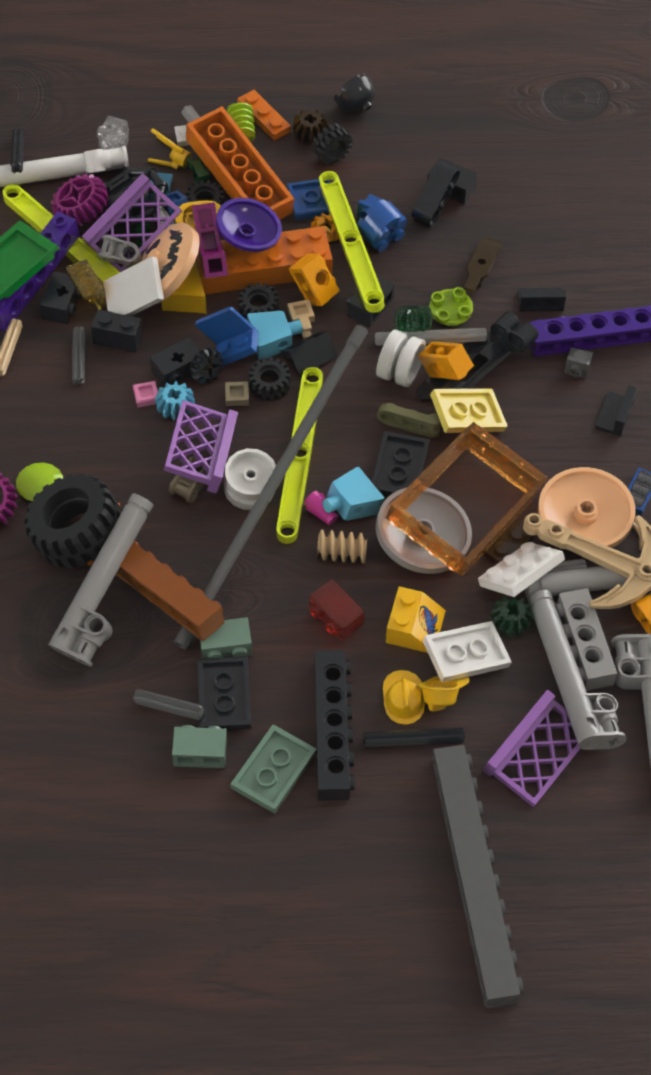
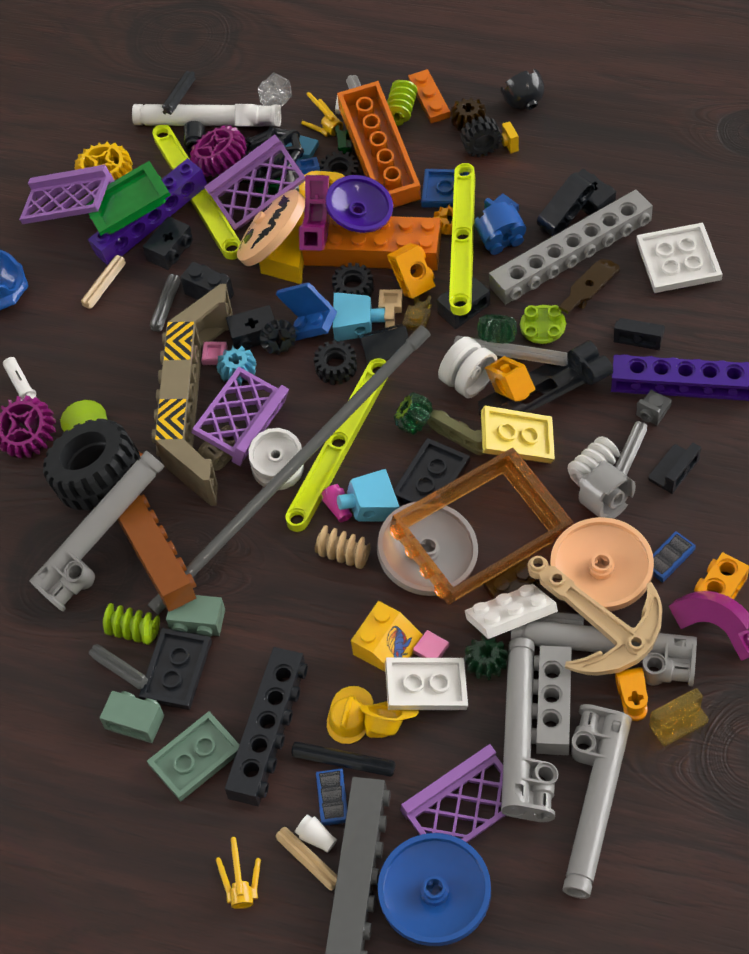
camera: 25 degrees right, 0 degrees up
(45, 189) = (192, 131): none -> black brick
(88, 283) = (194, 233): clear yellow bracket -> none
(114, 251) = (232, 207): light grey piece -> none
(132, 444) = (180, 387): none -> dark tan slope
(134, 288) = (233, 247): white tile -> none
(165, 662) = (130, 626): none -> lime piece
(237, 393) = (298, 370): dark tan plate -> none
(331, 320) = (418, 314): none -> clear yellow plate
(336, 610) = (312, 610): clear red brick -> none
(360, 140) = (510, 137): none -> yellow plate
(364, 410) = (413, 413): none -> clear green gear
(366, 879) = (241, 894): none -> yellow plant
(414, 809) = (315, 833): none -> white cone
(414, 833) = (307, 858): none -> tan axle
(416, 773) = (332, 796): none -> tile
(451, 232) = (570, 246): none -> light grey brick
(456, 617) = (430, 646): none -> bright pink tile
(543, 829) = (434, 889): none -> blue dish
(544, 421) = (599, 451): none -> white piece
(552, 224) = (679, 257): none -> white plate
(566, 444) = (605, 490): none -> light grey brick
(571, 407) = (631, 447): none -> light grey axle

